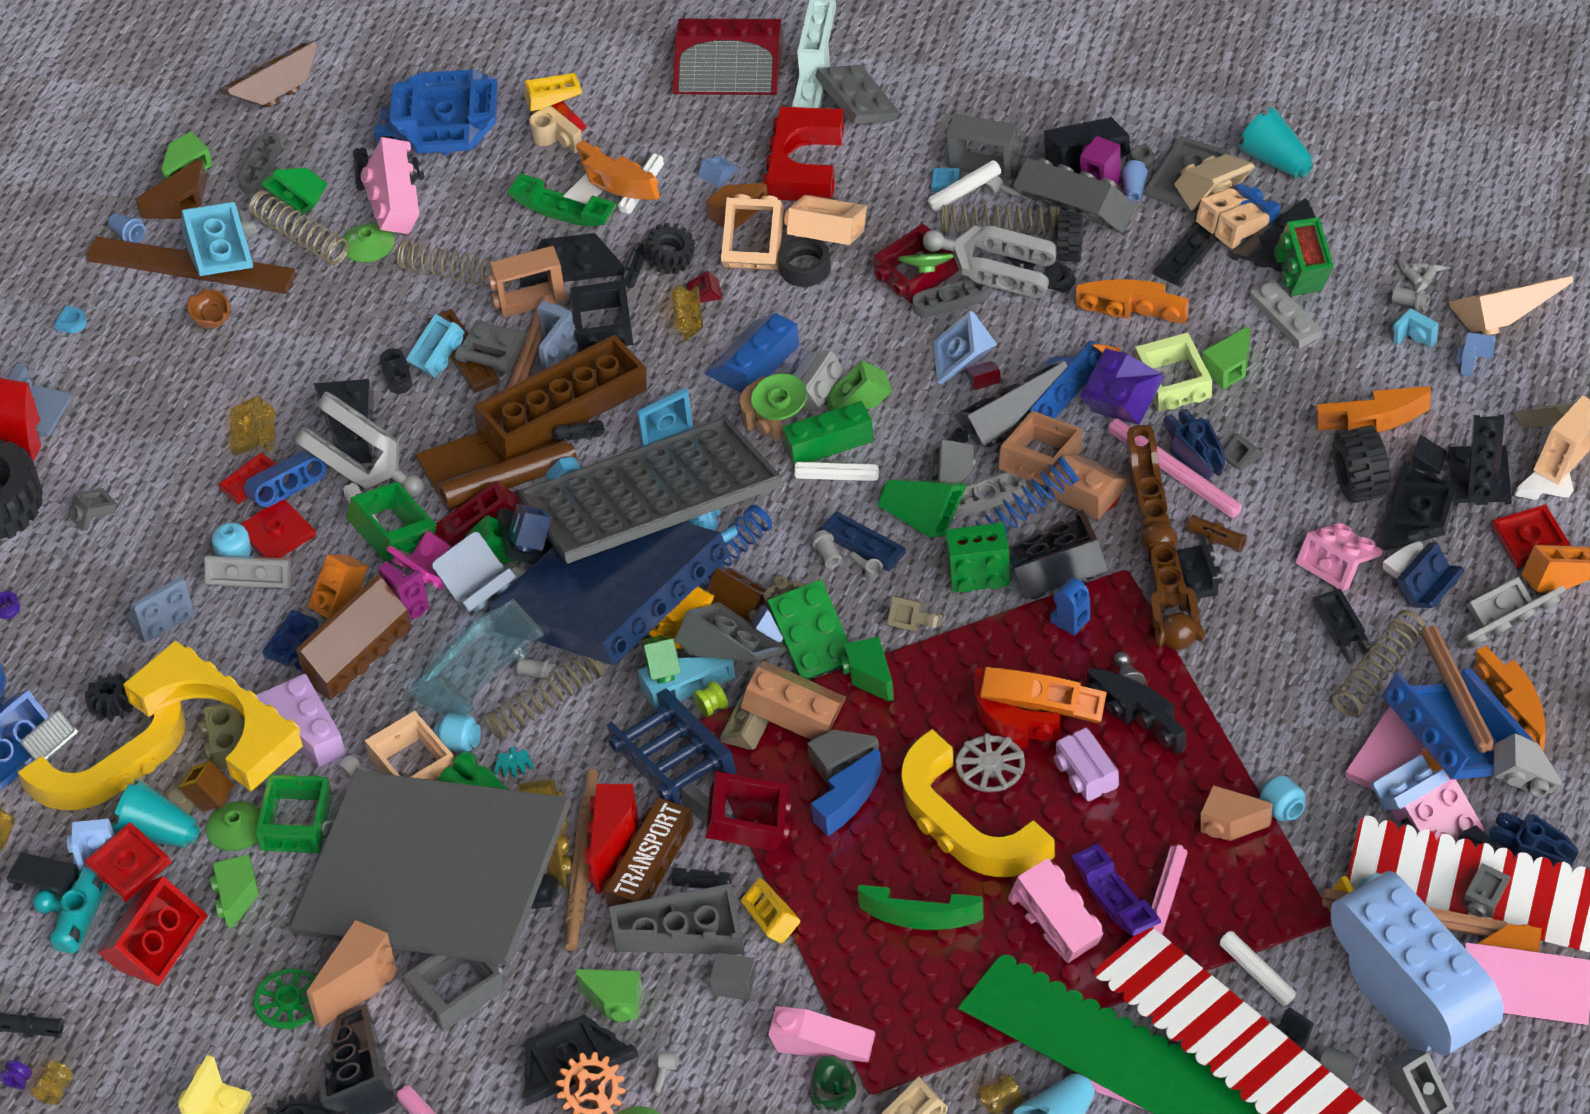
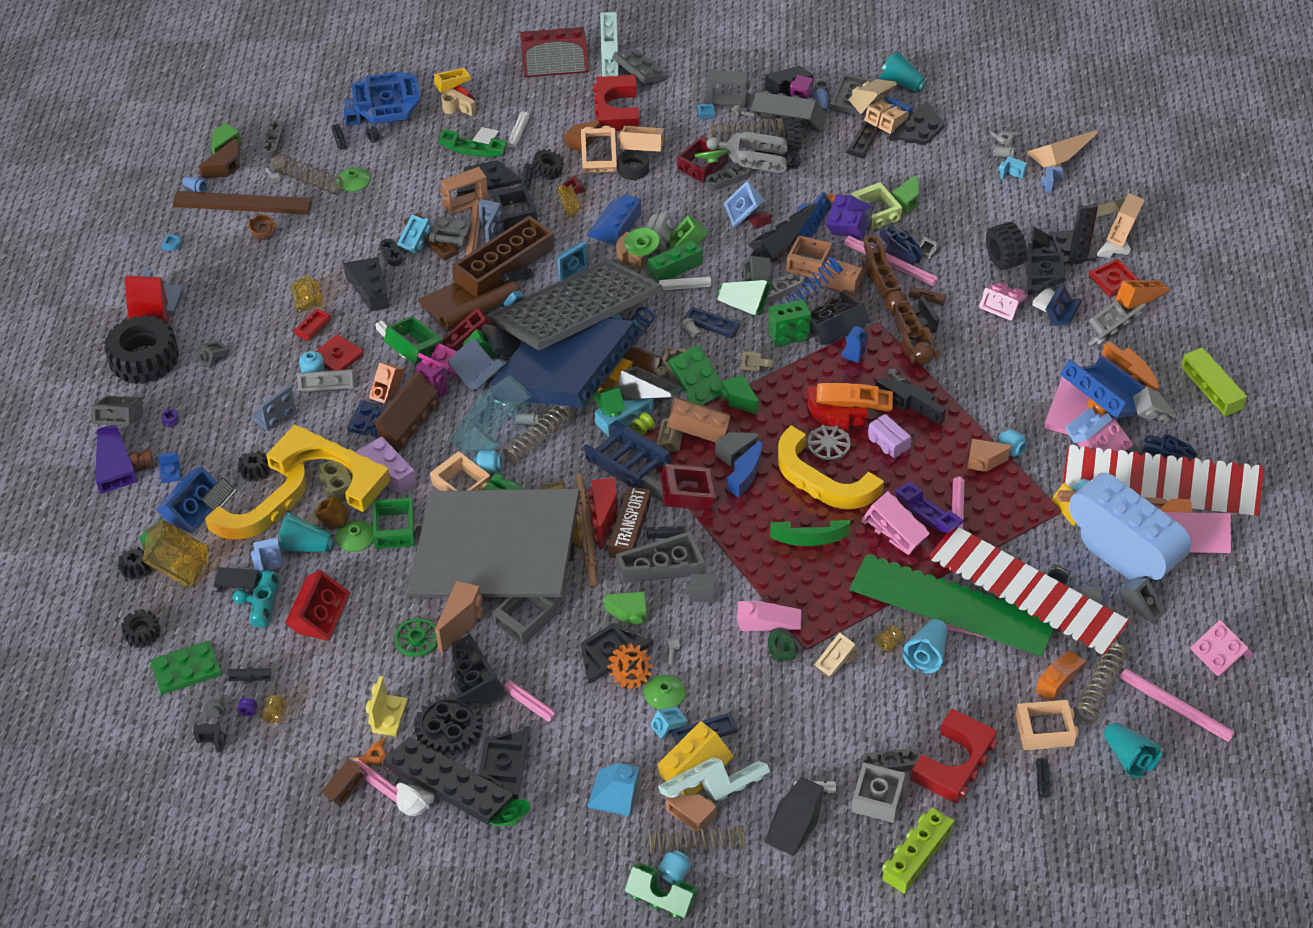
camera: 15 degrees left, 0 degrees up
(127, 862) = (293, 564): red plate -> none
(215, 239) = (257, 184): medium azure slope -> none
(236, 886) = (366, 571): bright green slope -> none
(272, 479) = (330, 325): blue beam -> none
(275, 77) = (271, 87): wedge -> none
(296, 187) = (301, 149): green slope -> none
(350, 764) = (421, 490): light grey hand -> none
(386, 465) = (401, 308): light grey piece -> none
(389, 186) = (362, 144): bright pink wedge -> none
(403, 265) = (380, 184): dark tan piece -> none
(513, 761) = (526, 475): teal piece -> none
(529, 527) = (507, 333): dark blue brick -> none
(618, 175) = (506, 125): orange slope -> none
(716, 170) = (563, 118): medium blue slope -> none
(765, 624) = (669, 374): slope -> none
(784, 918) = (723, 553): yellow slope -> none
(868, 565) = (721, 337): light grey hand -> none
(964, 185) = (720, 112): white axle -> none
(1126, 296) = (844, 165): orange slope -> none
(1257, 968) = (1024, 543): white axle -> none
(1285, 314) = (932, 167): light grey plate -> none
(1304, 256) = (938, 132): green piece -> none
(1341, 623) = (1018, 339): black hinge -> none
(1359, 703) = (1044, 347): dark tan piece -> none
(1386, 410) = (1008, 212): orange slope -> none
(1458, 689) = (1122, 390): nougat axle -> none
(1485, 891) = (1152, 481): dark grey bracket -> none

